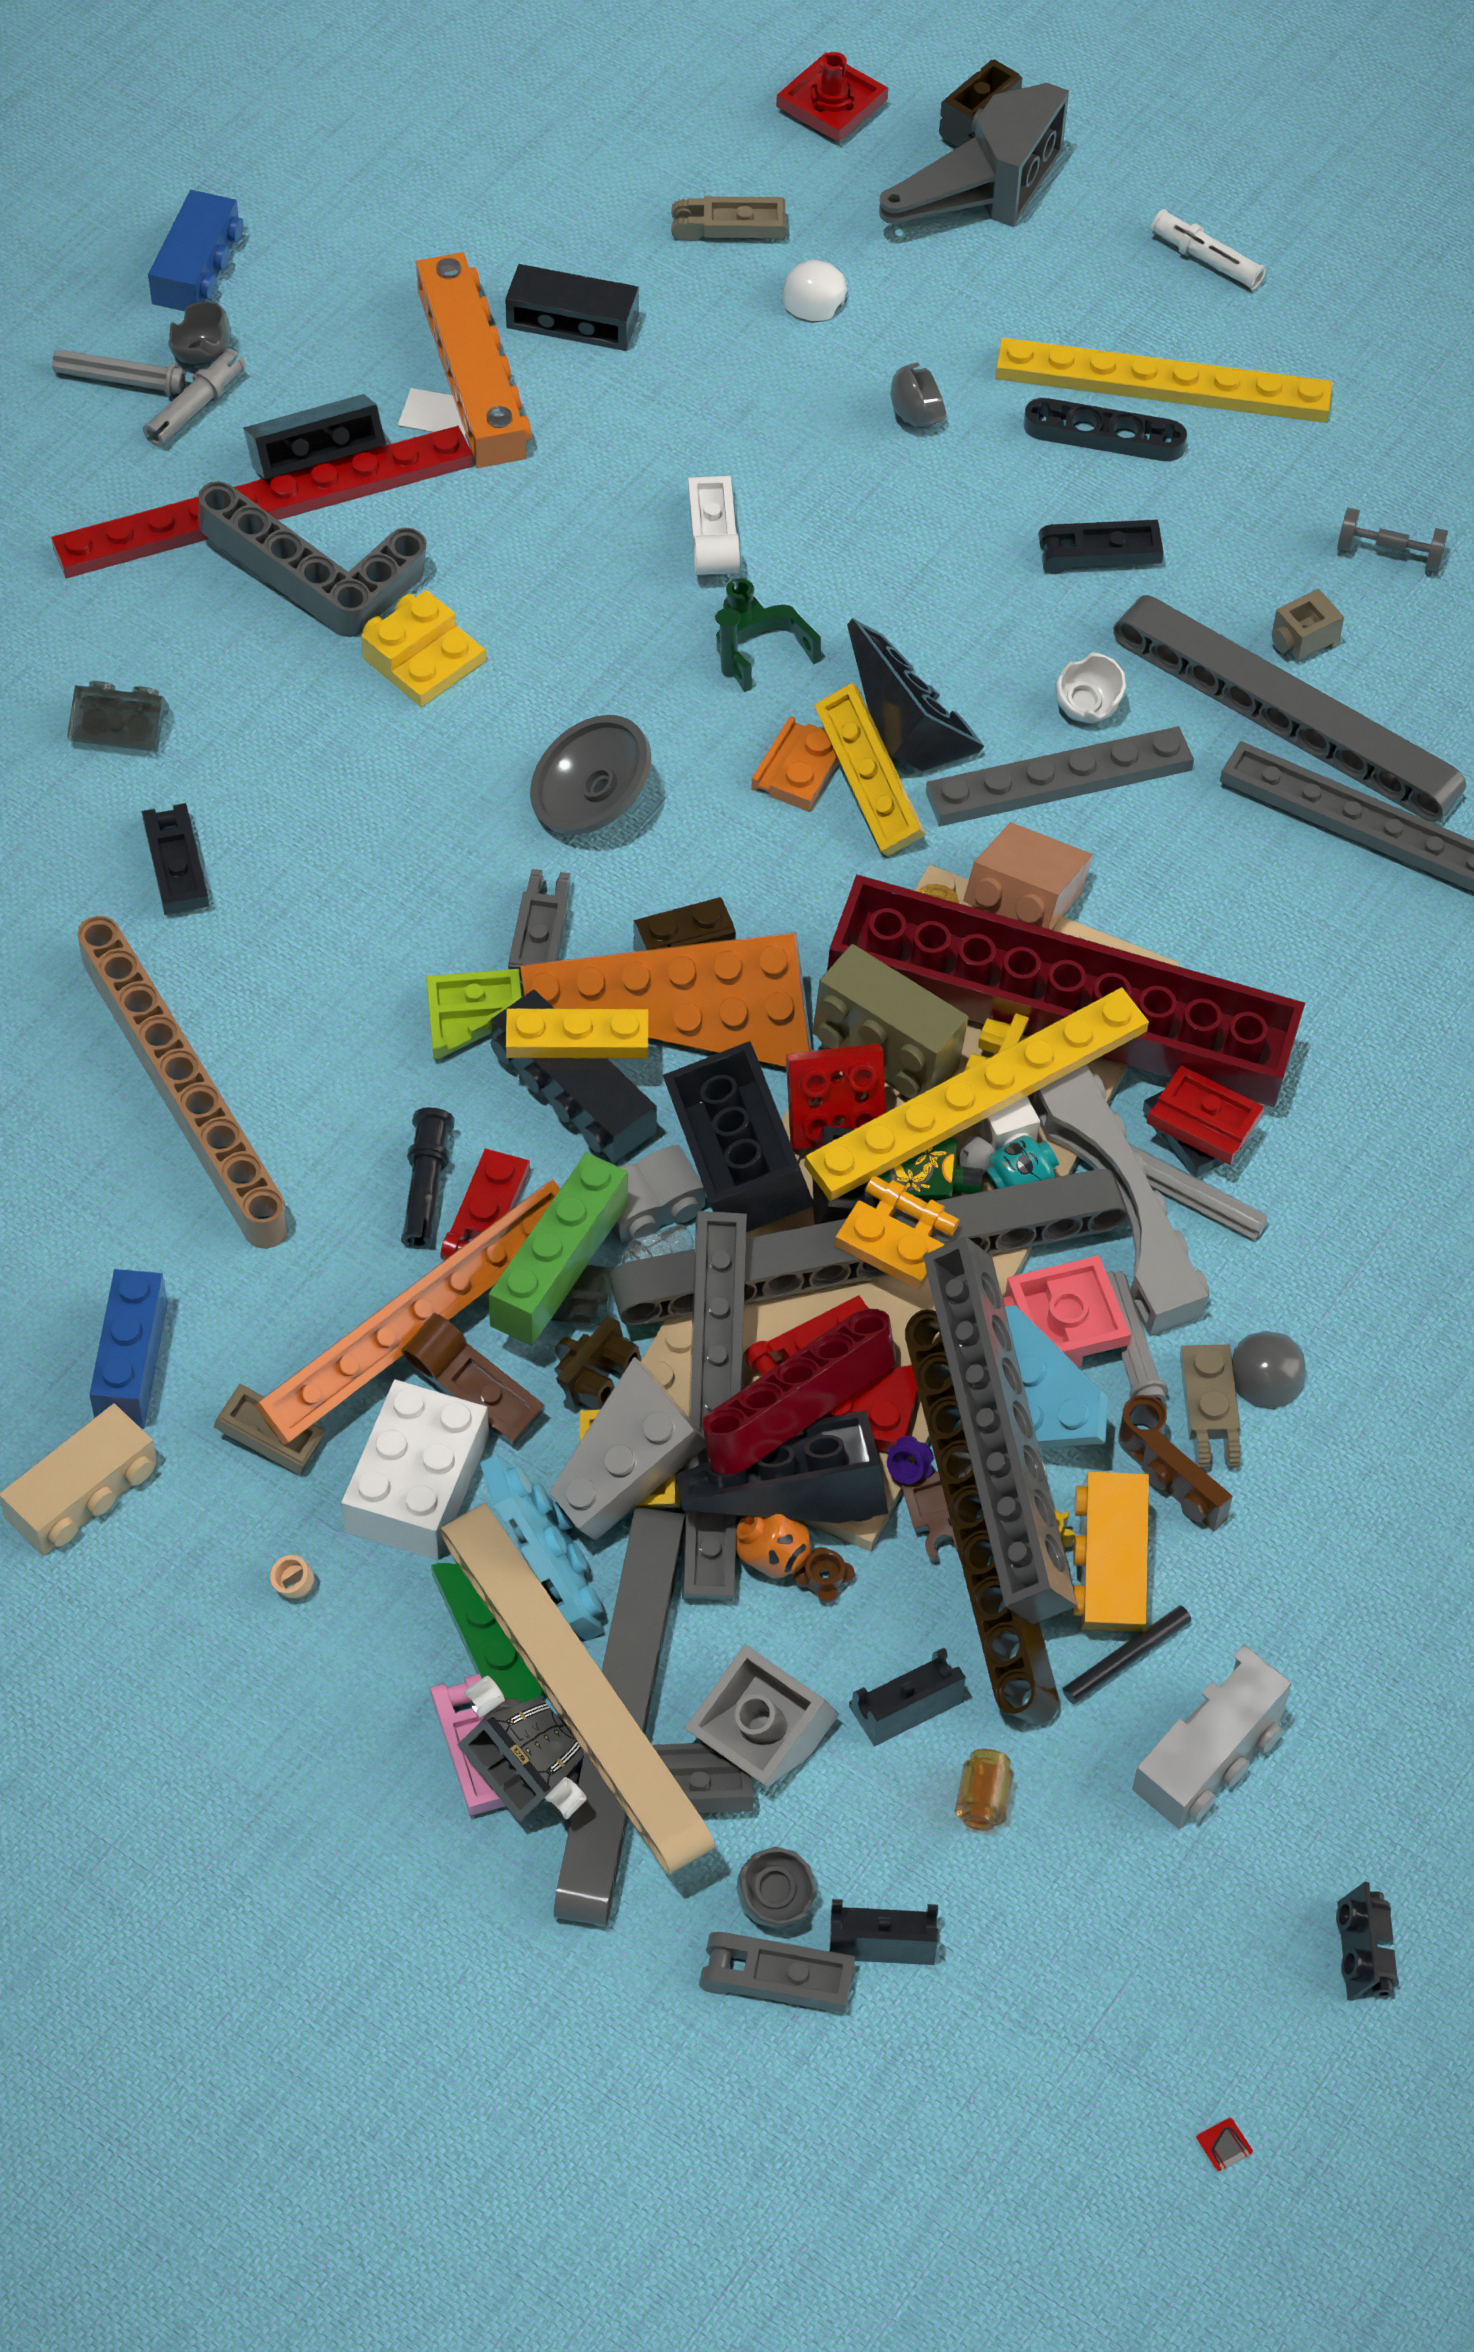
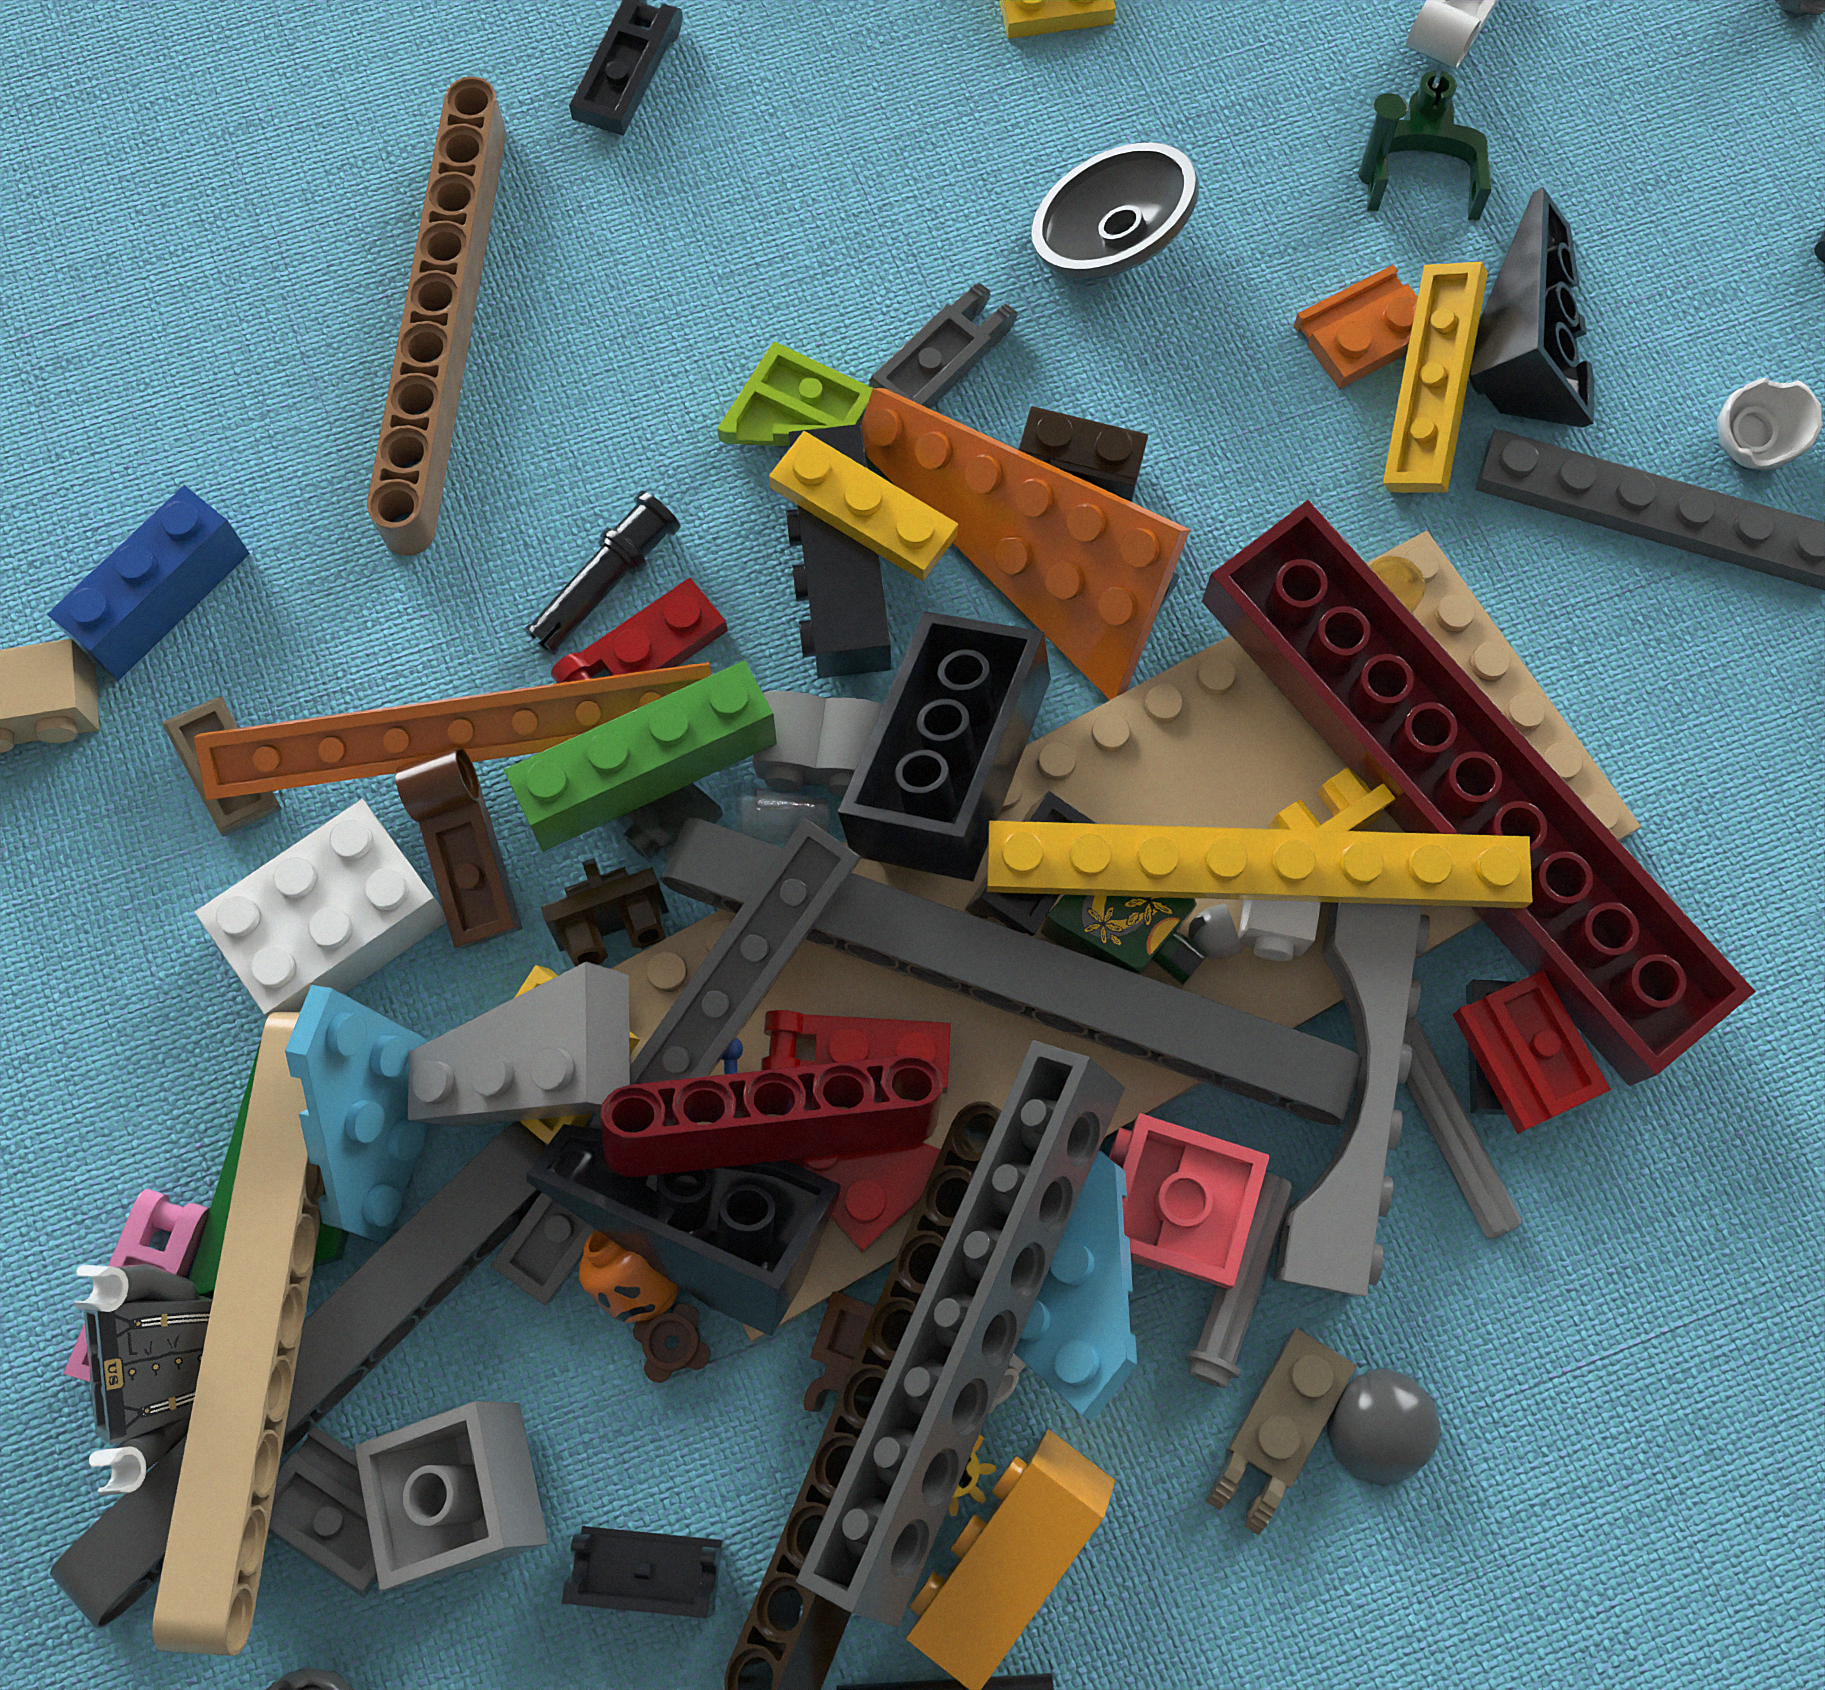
camera: 35 degrees right, 15 degrees up
(292, 1570) = (112, 945): light nougat hinge -> none
(839, 1096) = (1101, 743): red plate -> none
(873, 1004) = (1219, 708): olive brick -> none
(889, 1243) = (1016, 989): light orange plate -> none
(900, 1465) = (855, 1276): dark purple plate -> none
(1021, 1163) = (1257, 980): teal head -> none
(1028, 877) = (1525, 616): nougat brick -> none
(1168, 1466) = (1162, 1486): reddish brown plate -> none

